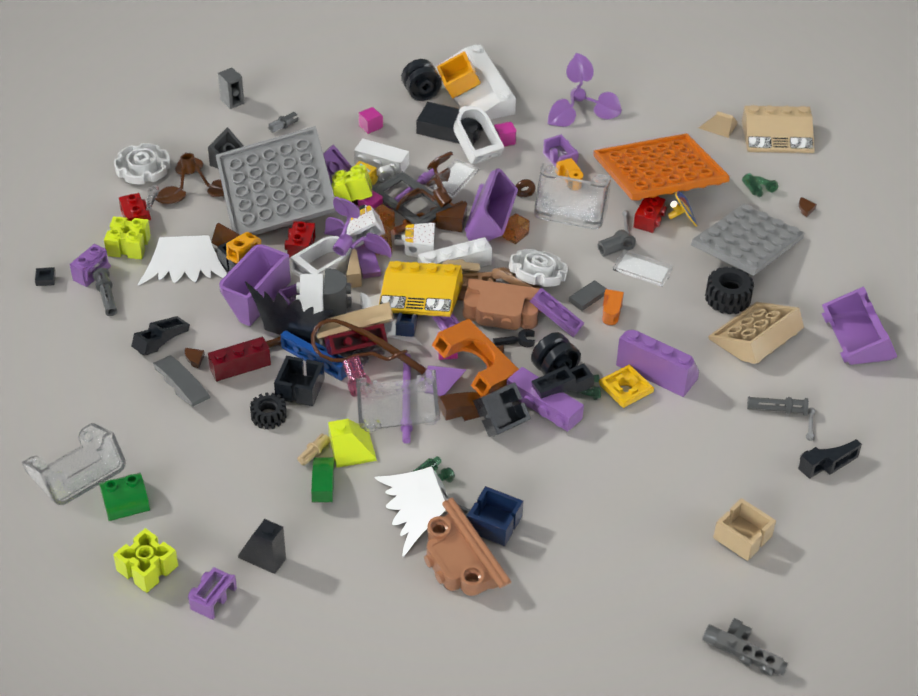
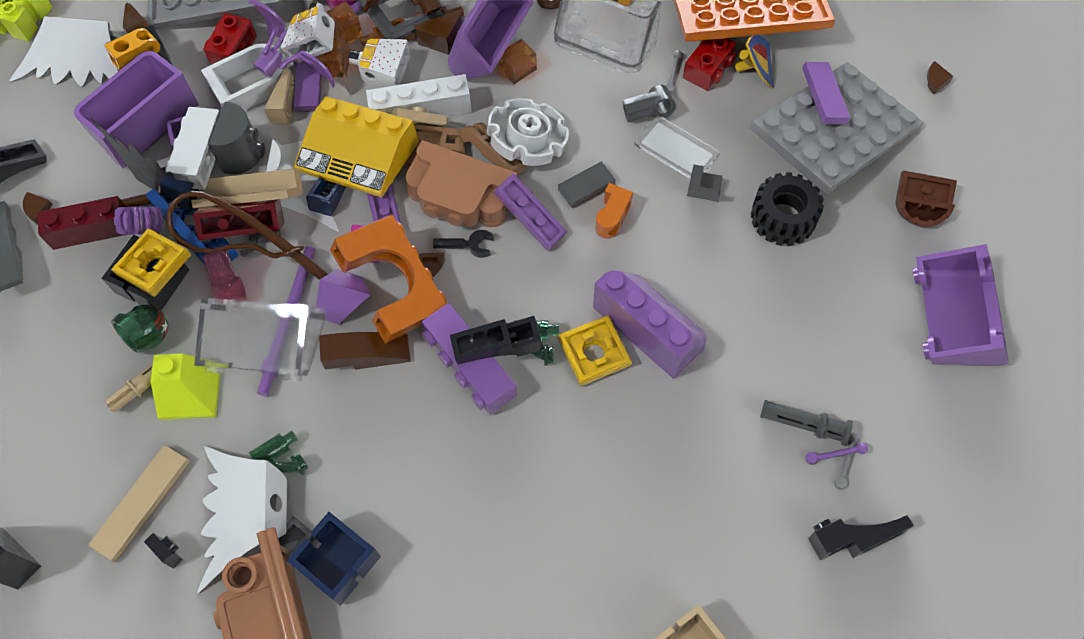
camera: 15 degrees right, 20 degrees up
(268, 402) = (87, 302): black tyre -> none
(285, 346) = (137, 220): none -> medium lavender gear
(307, 358) = (146, 249): none -> yellow piece
(311, 409) = (141, 327): none -> clear green helmet
(322, 479) = (126, 443): green slope -> none
(343, 513) = (139, 503): none -> tan tile
(373, 532) = (164, 549): none -> black plate
(499, 411) = (399, 373): black piece -> none
(554, 353) = (502, 291): black wheel -> none
(668, 285) = (704, 184): none -> dark grey panel
(735, 219) = (826, 93): none -> medium lavender tile
(753, 184) = (870, 35): clear green plant -> none
(758, 331) = (811, 284): tan slope -> none
(787, 425) = (812, 458): none -> medium lavender hinge
(817, 274) = (925, 198): none -> copper slope

